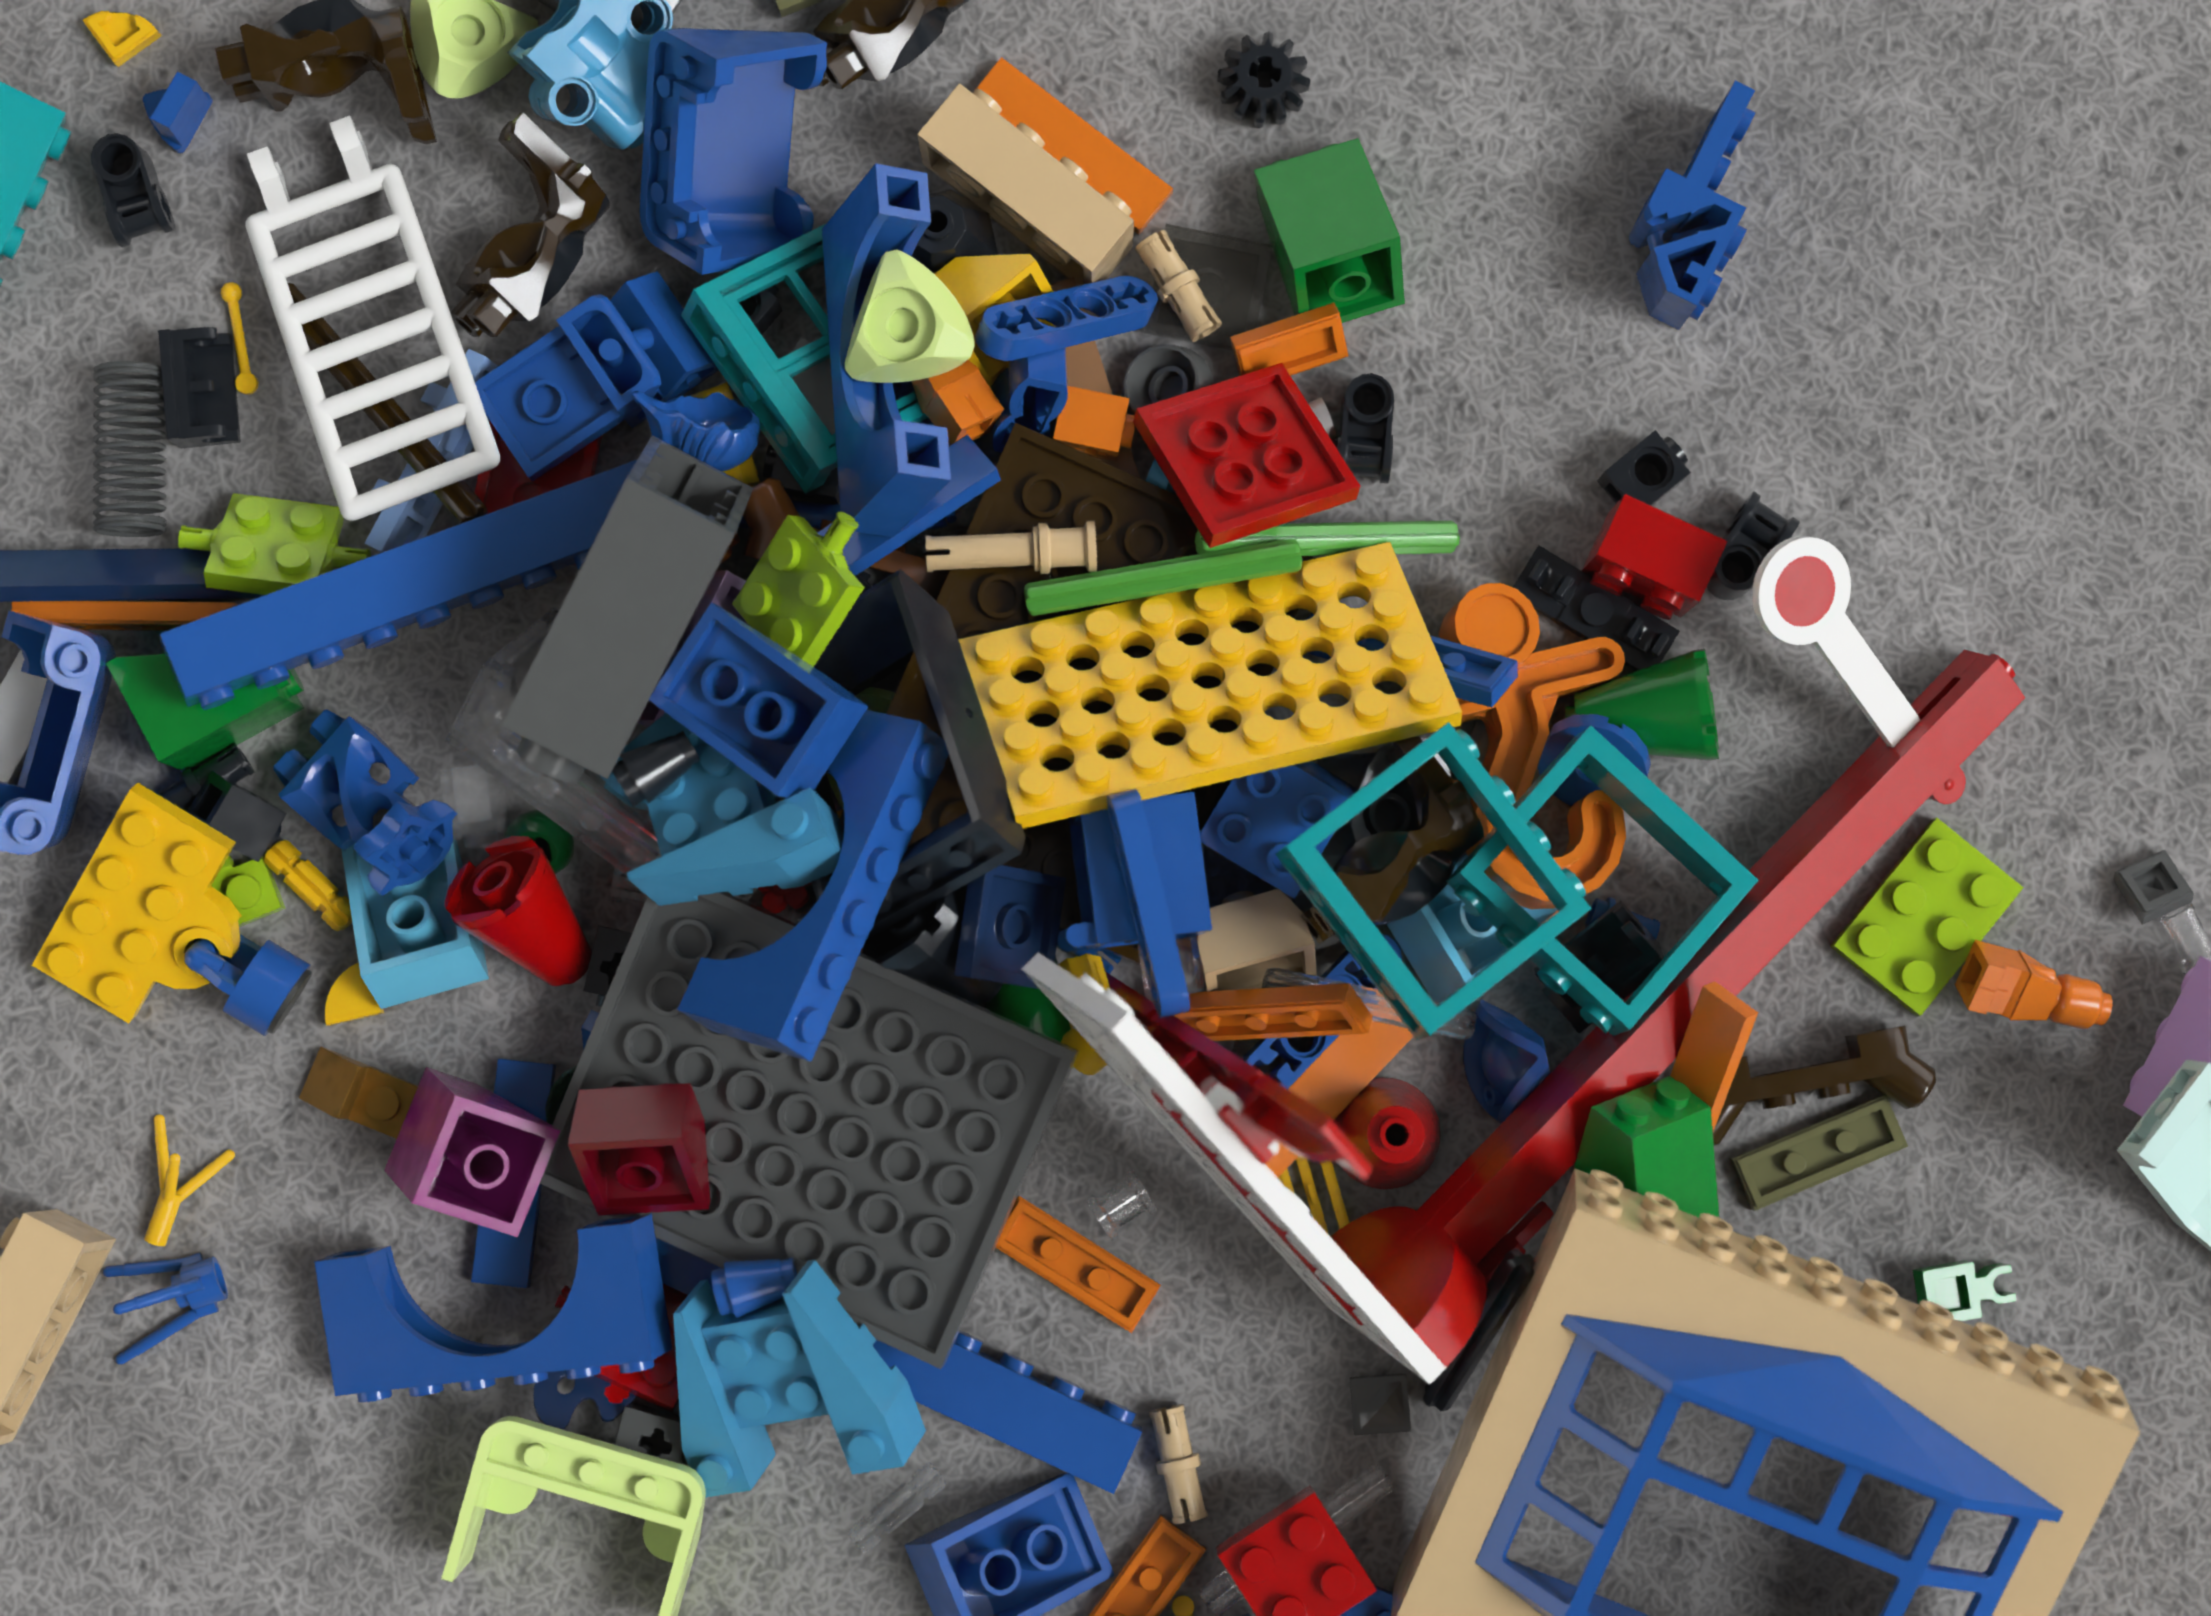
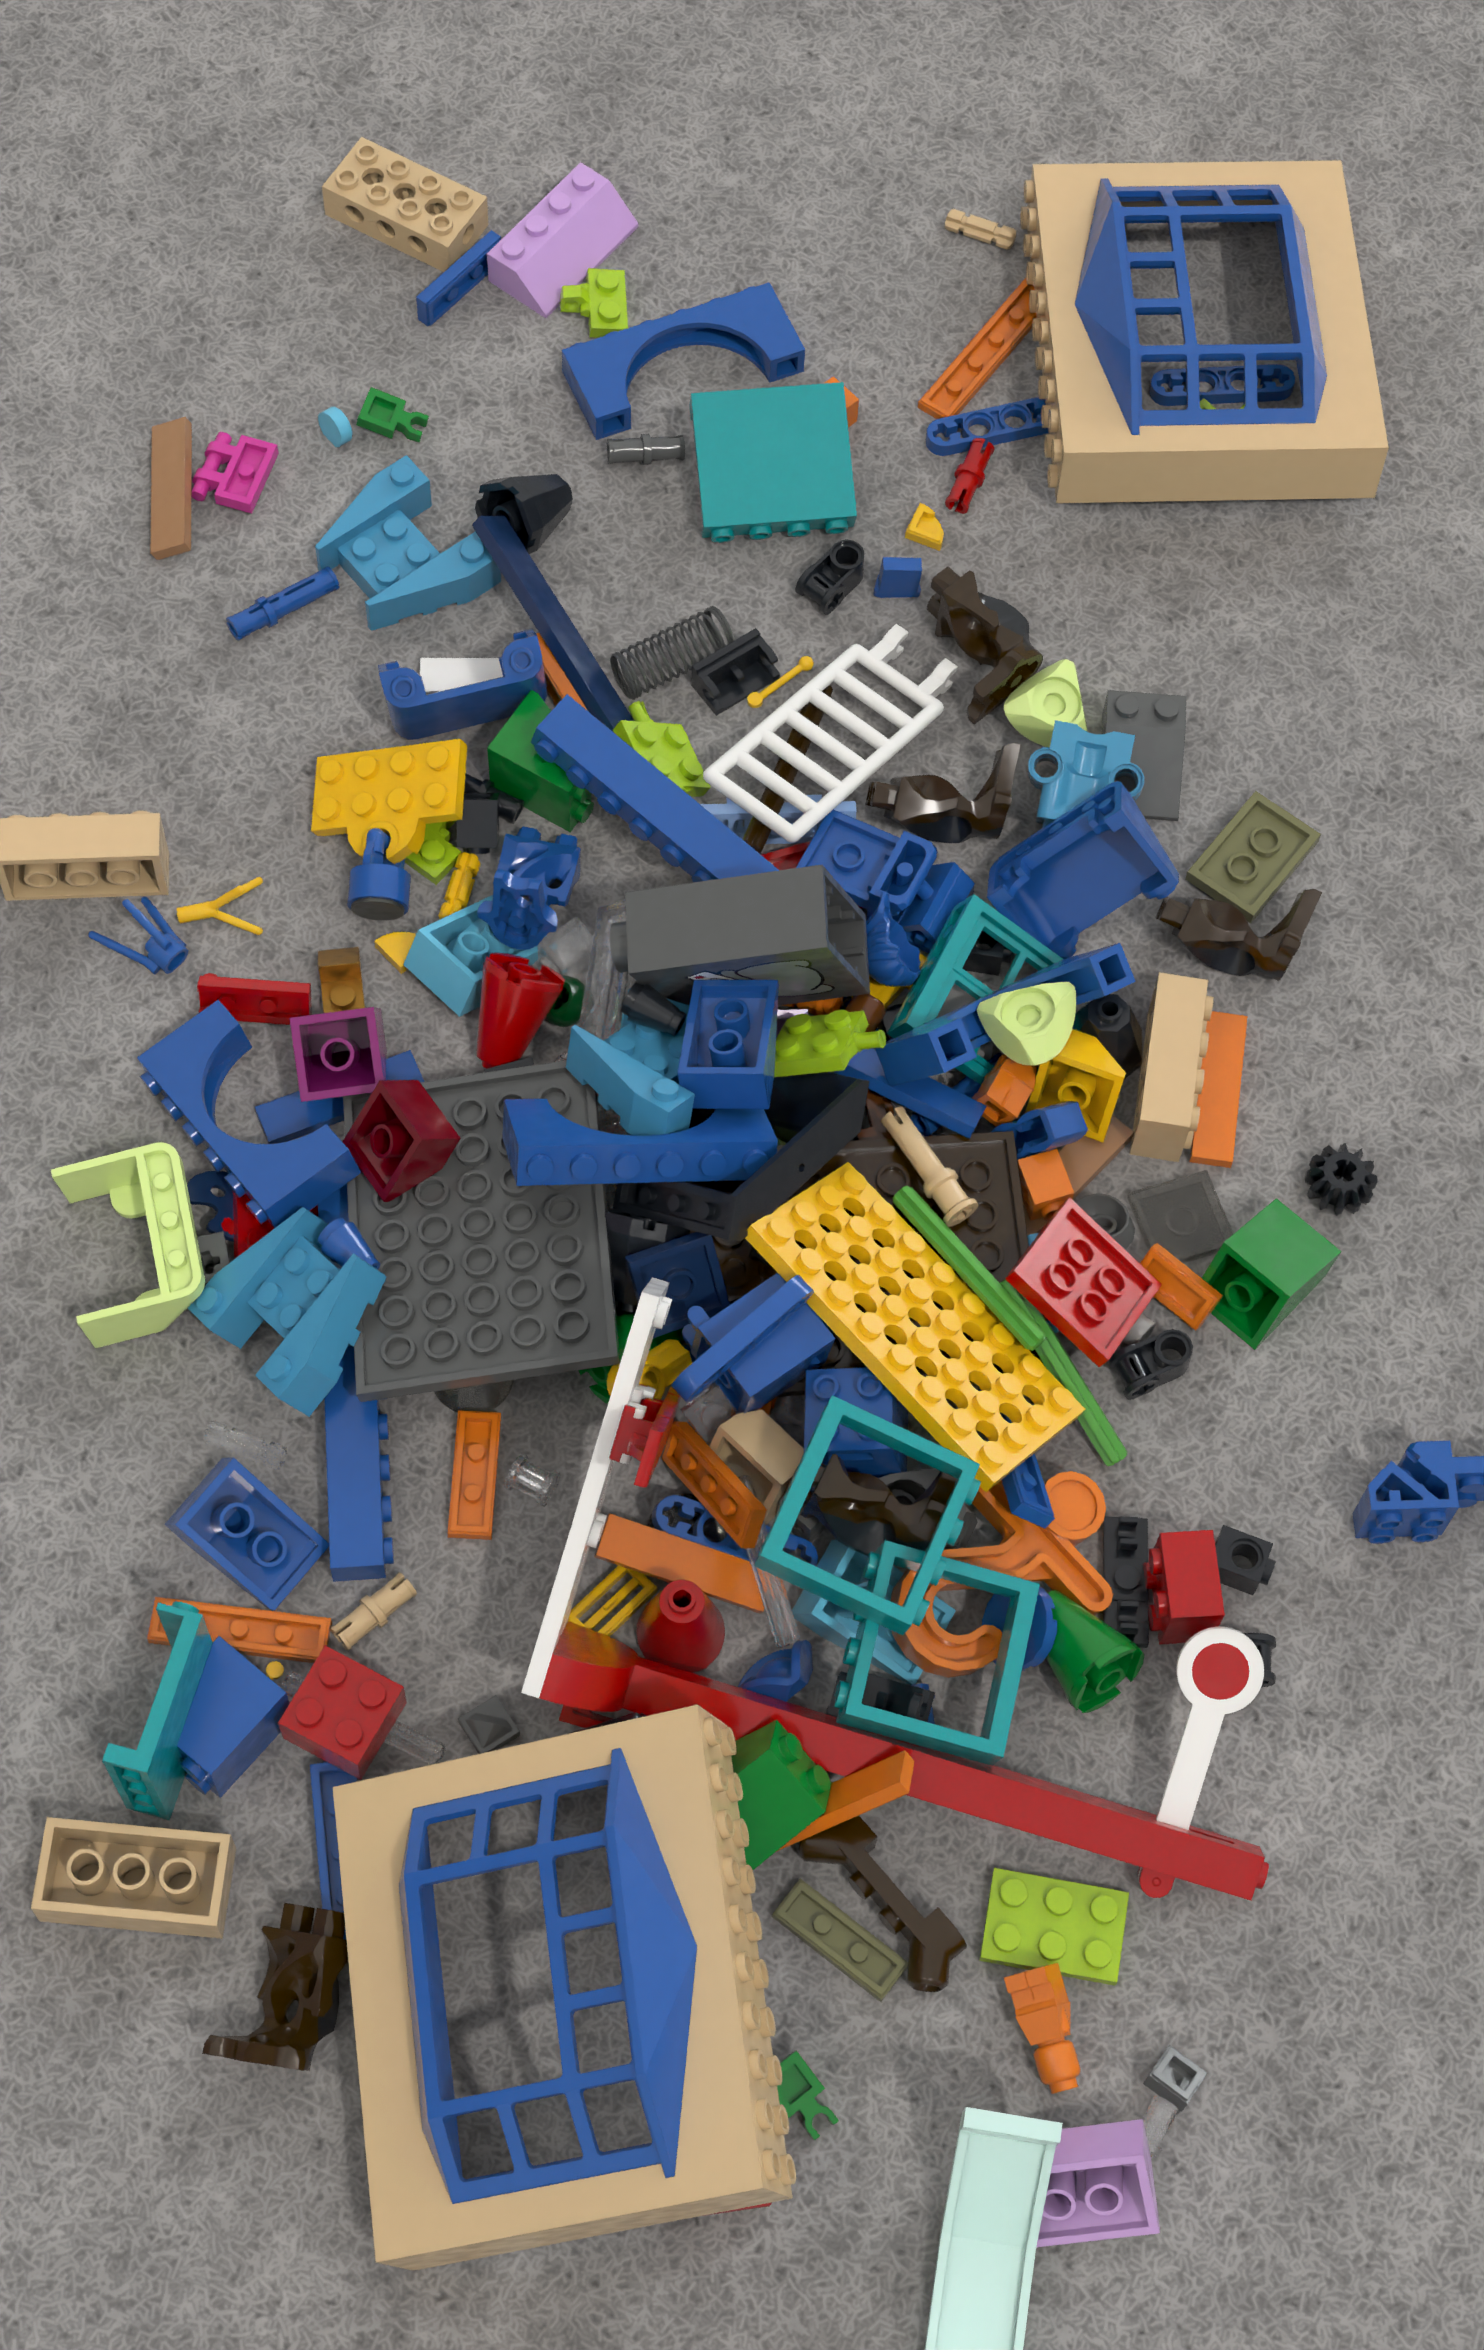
camera: 60 degrees right, 20 degrees down
(327, 1212) = (256, 999): none -> red hinge
(1013, 332) = (1072, 1092): blue beam -> none
(1178, 285) = (1169, 1194): tan pin -> none

